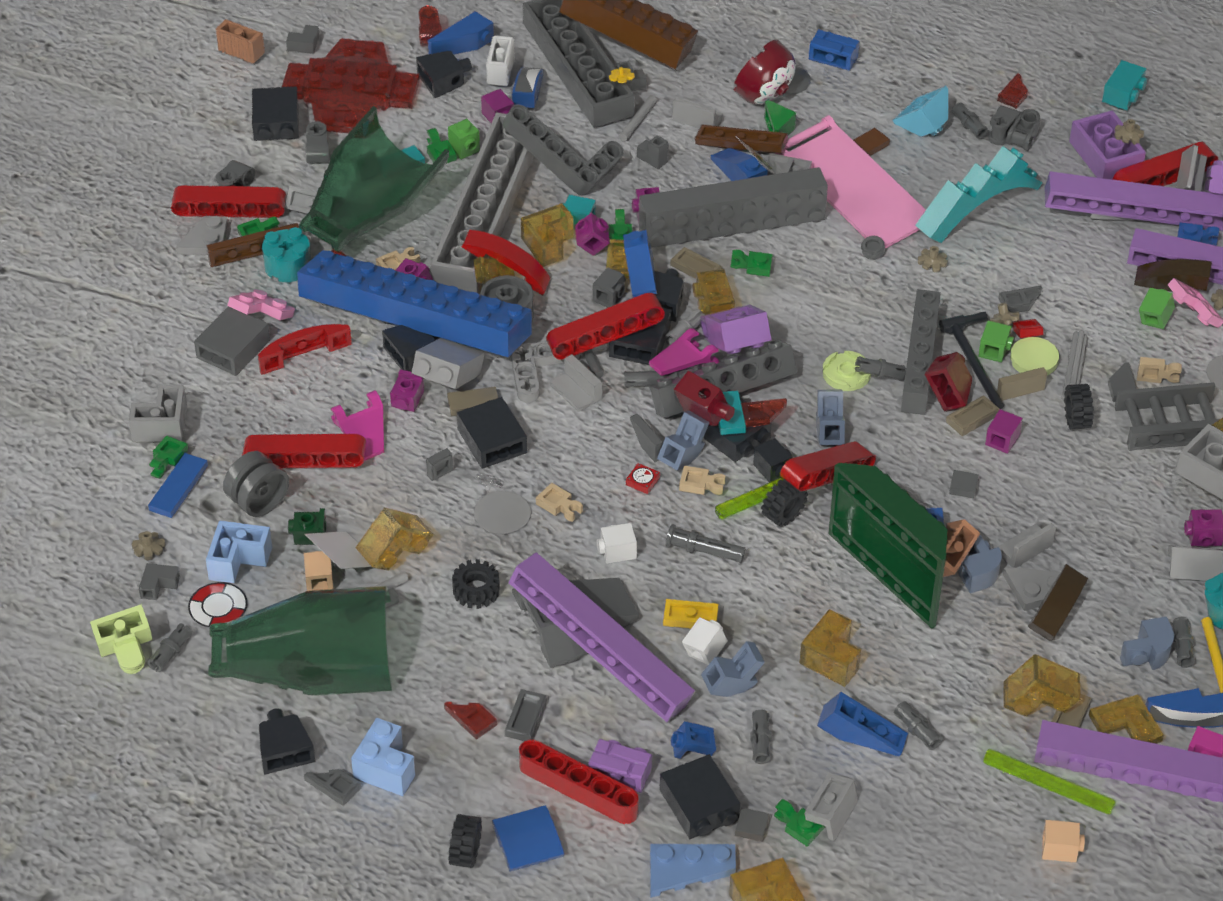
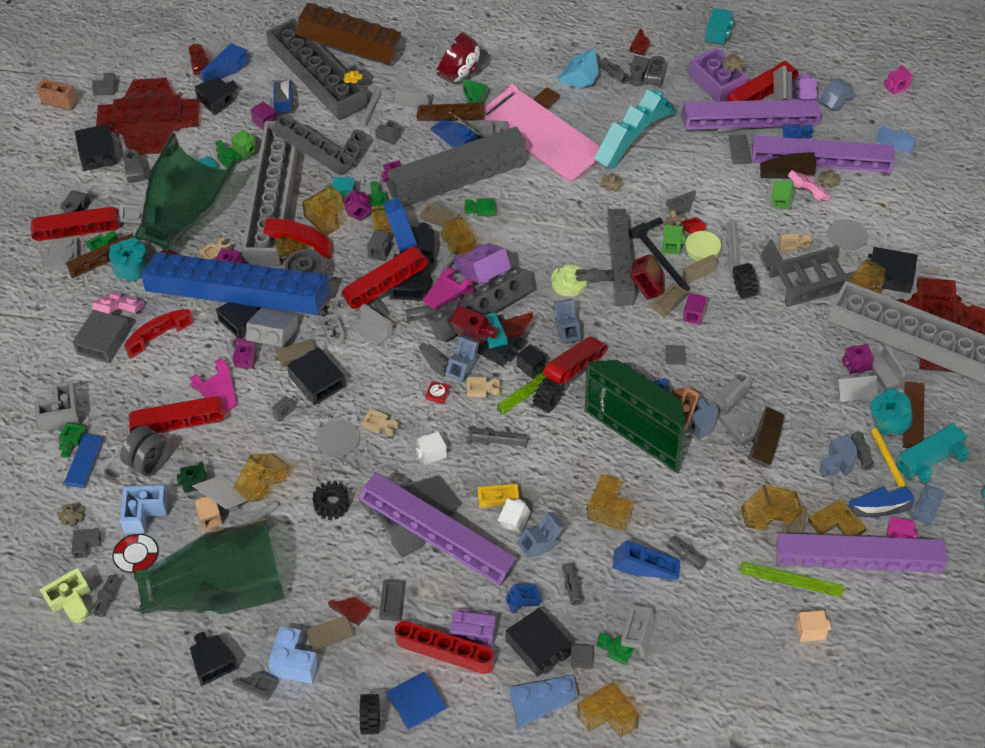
camera: 10 degrees left, 5 degrees up
(437, 740) = (329, 633): none -> dark tan tile
(500, 60) = (258, 78): white brick -> none
(834, 50) = (503, 31): blue brick -> none
(873, 247) = (566, 180): dark grey tile -> none
(1114, 244) = (739, 149): none -> dark grey tile

